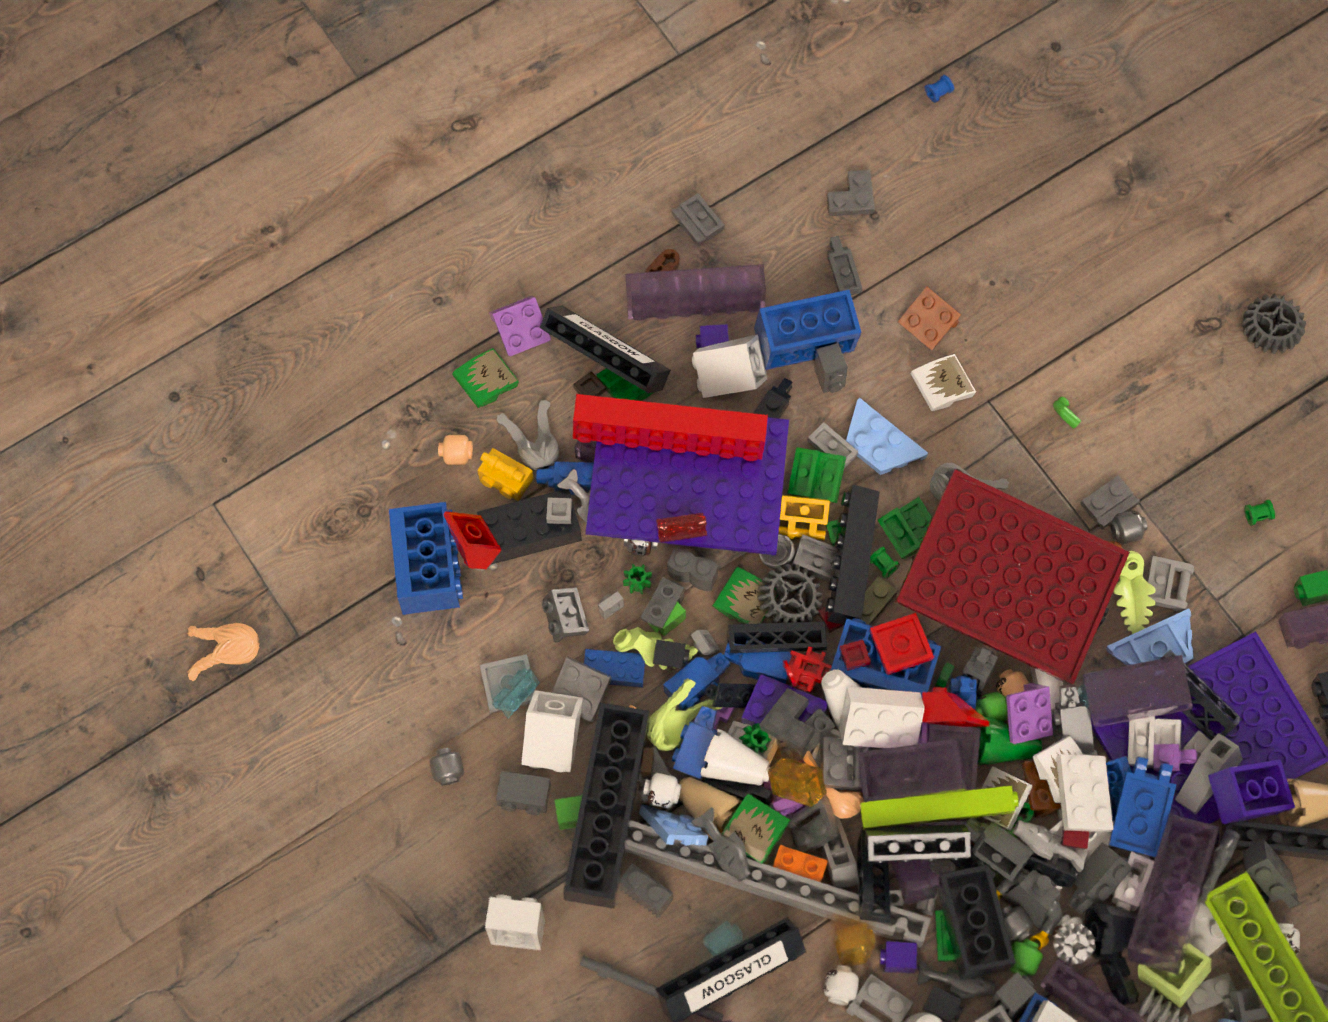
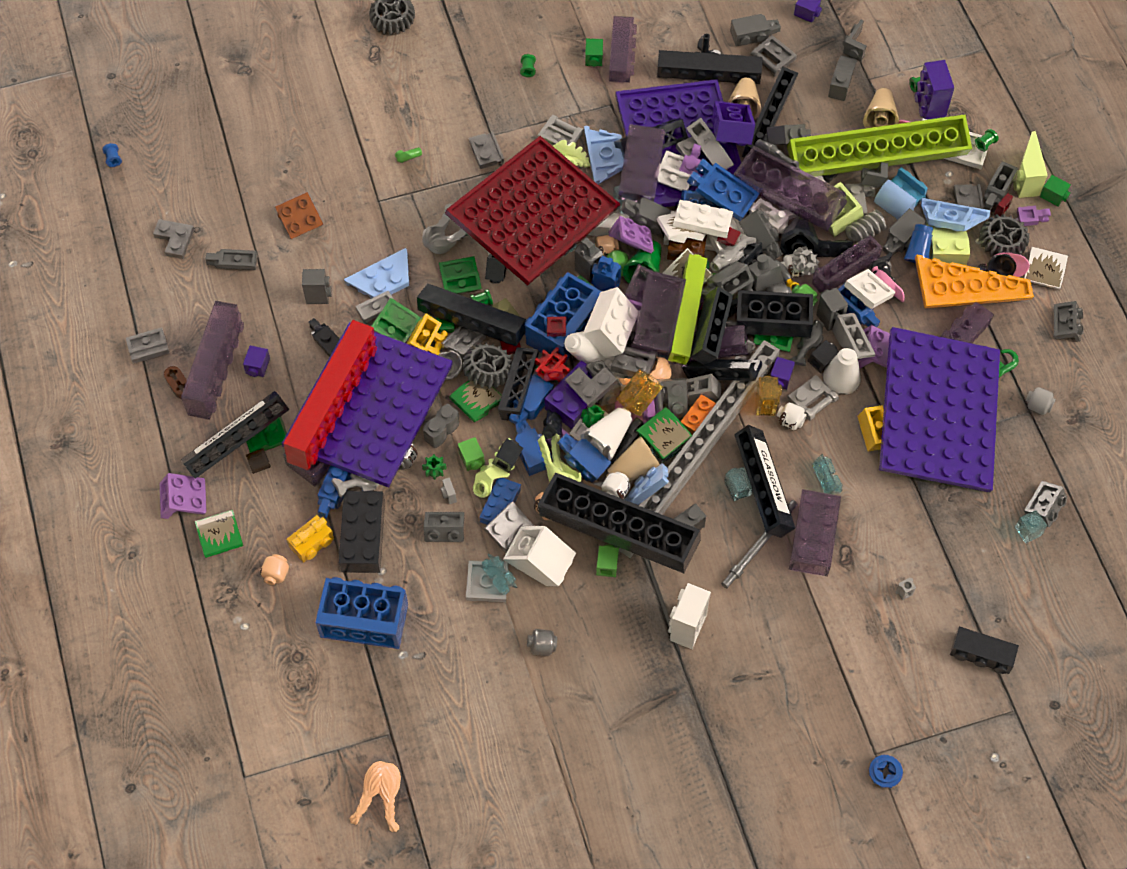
camera: 75 degrees left, 5 degrees down
(472, 539) = (365, 567): red slope -> none
(523, 792) = (581, 591): dark grey brick -> none
(545, 449) = (299, 504): light grey hair -> none
(559, 510) = (364, 498): light grey plate -> none
(663, 603) = (463, 450): dark grey bracket -> none
(681, 527) = (412, 413): clear red hinge -> none
(705, 643) = (502, 434): light grey plate -> none
(728, 851) = (678, 452): dark grey animal -> none
(729, 367) = (287, 352): white slope -> none
(795, 329) = (279, 290): blue brick -> none
(901, 643) = (559, 293): red plate -> none
(943, 382) = (353, 222): slope -> none
(949, 710) = (619, 276): red slope -> none
(1128, 527) = (510, 143): flat silver head -> none

